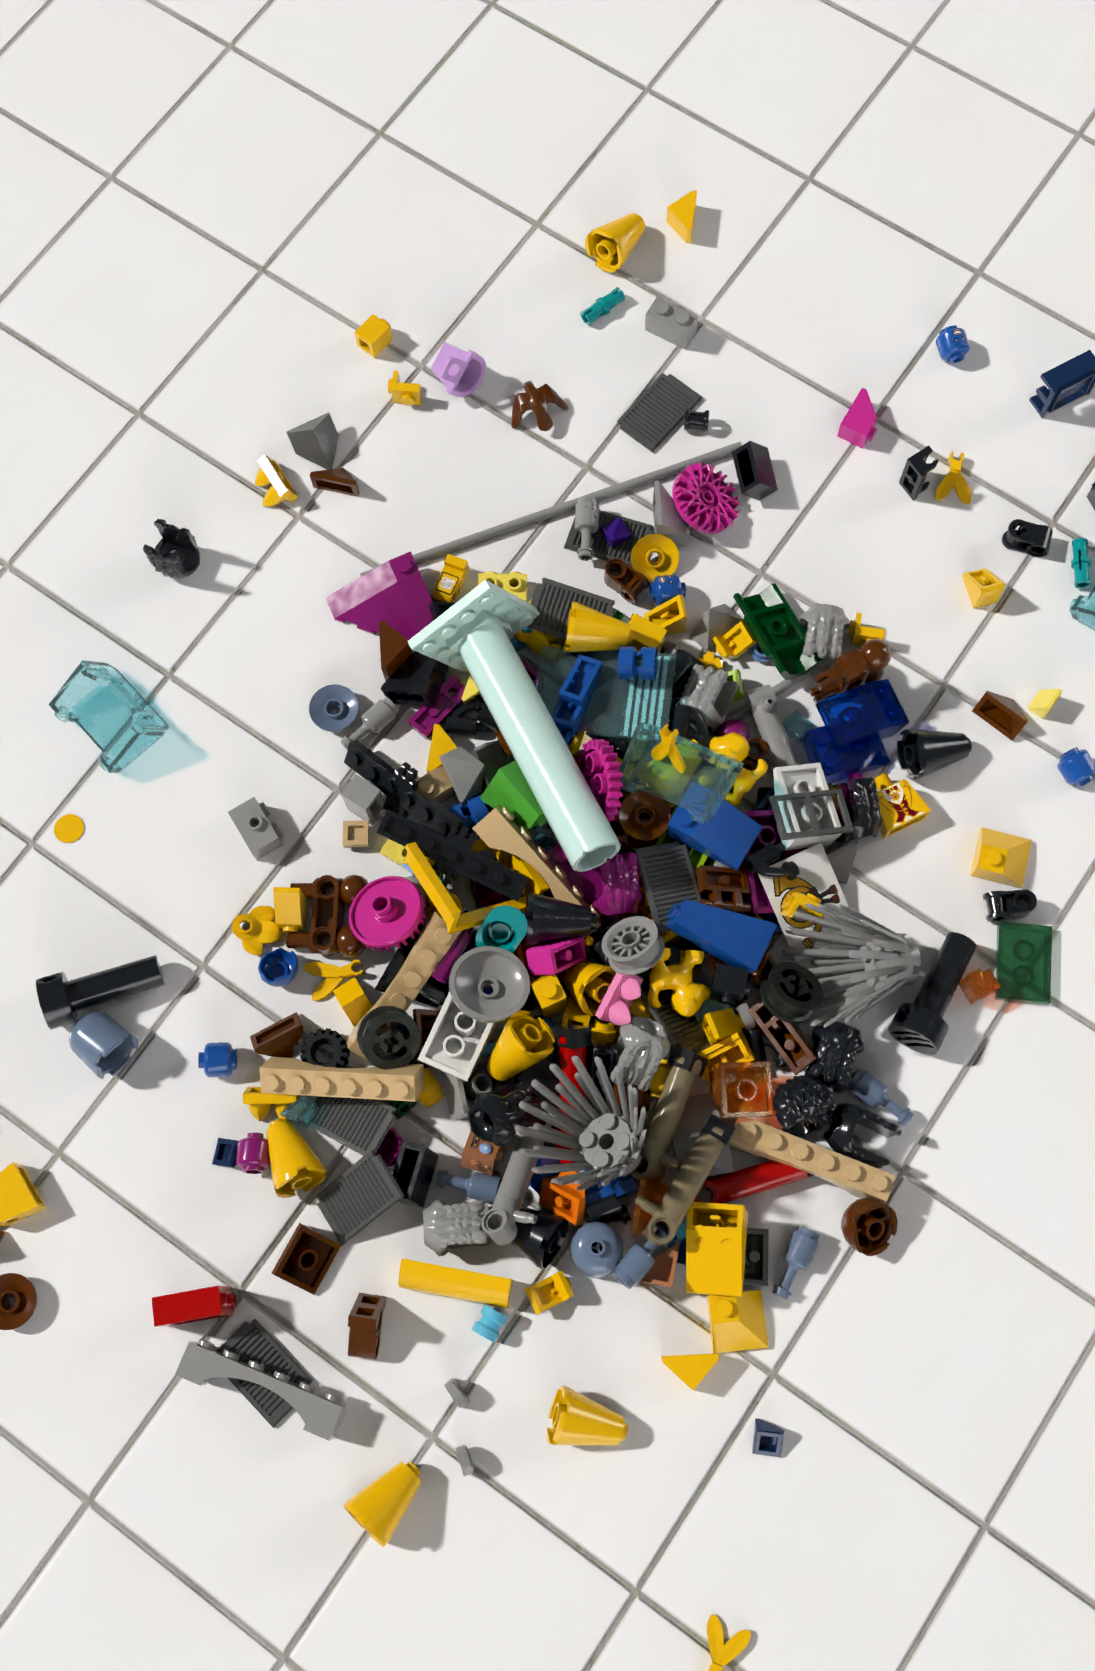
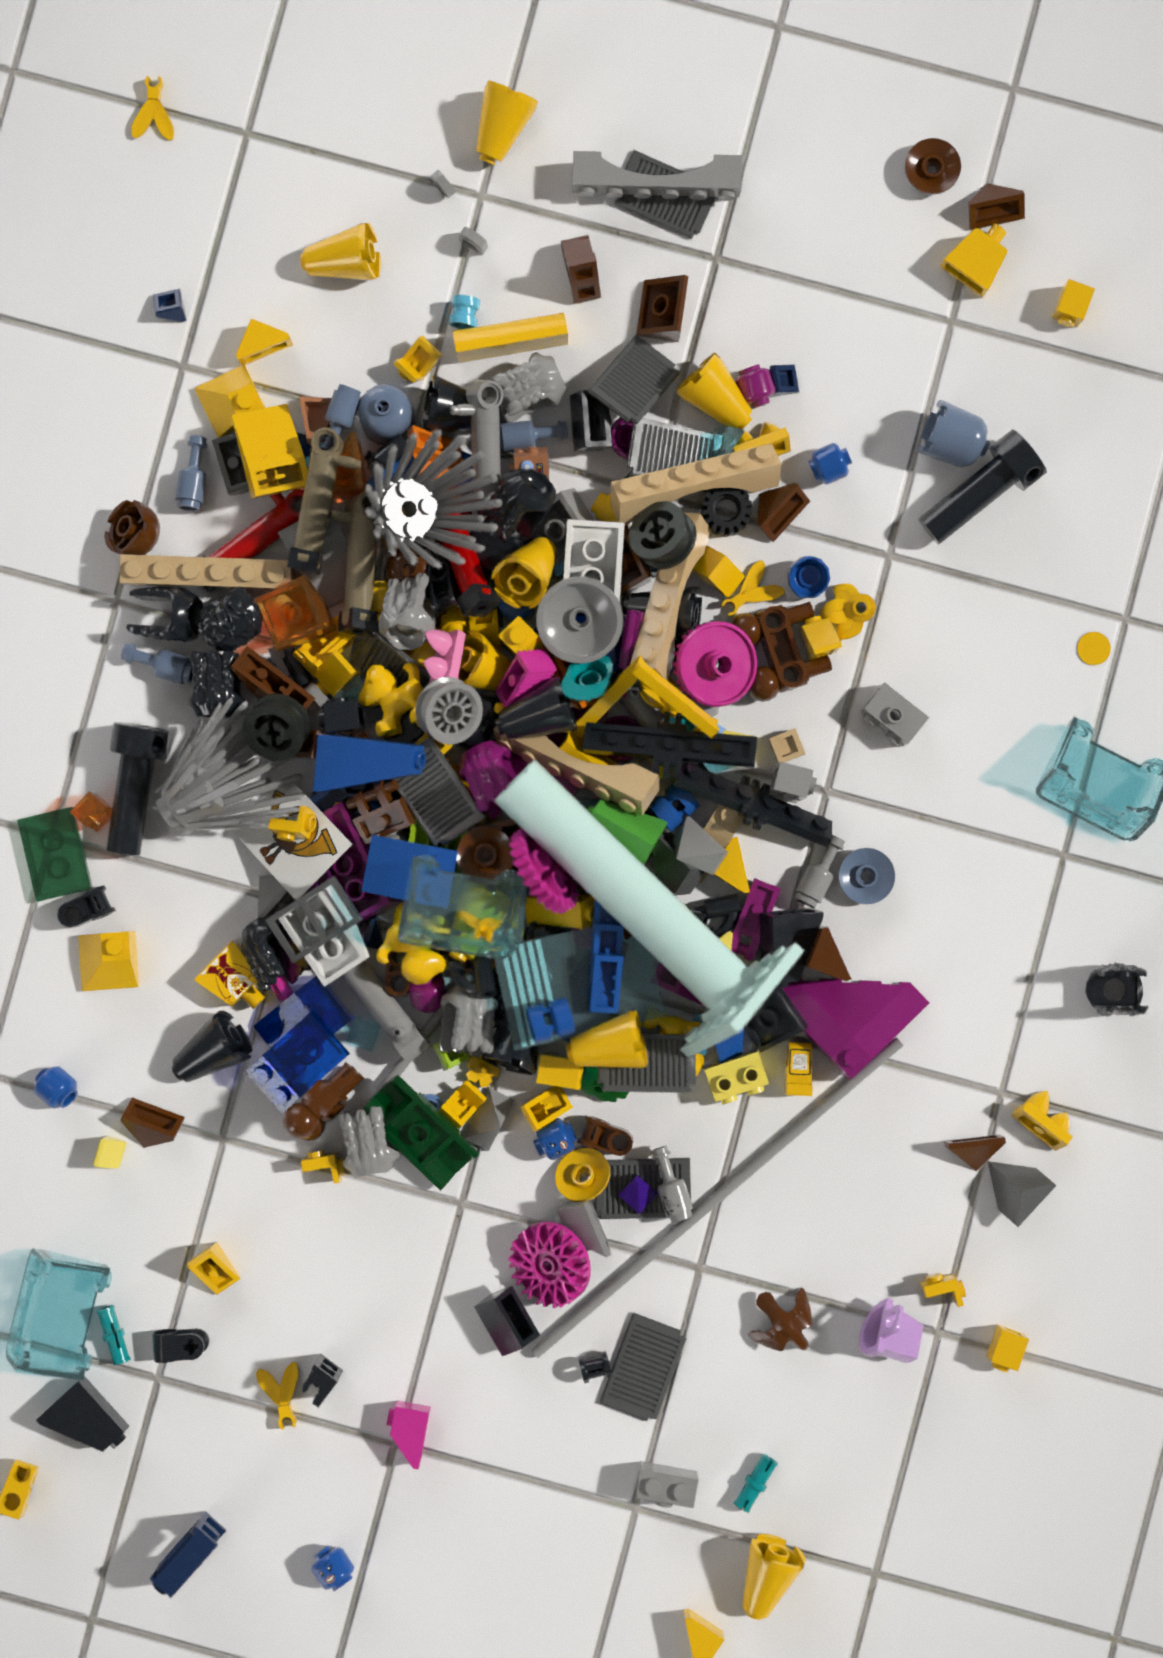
camera: 155 degrees right, 15 degrees up
(193, 1306) = (751, 222): red window -> none
(765, 856) = (352, 857): black plant -> none

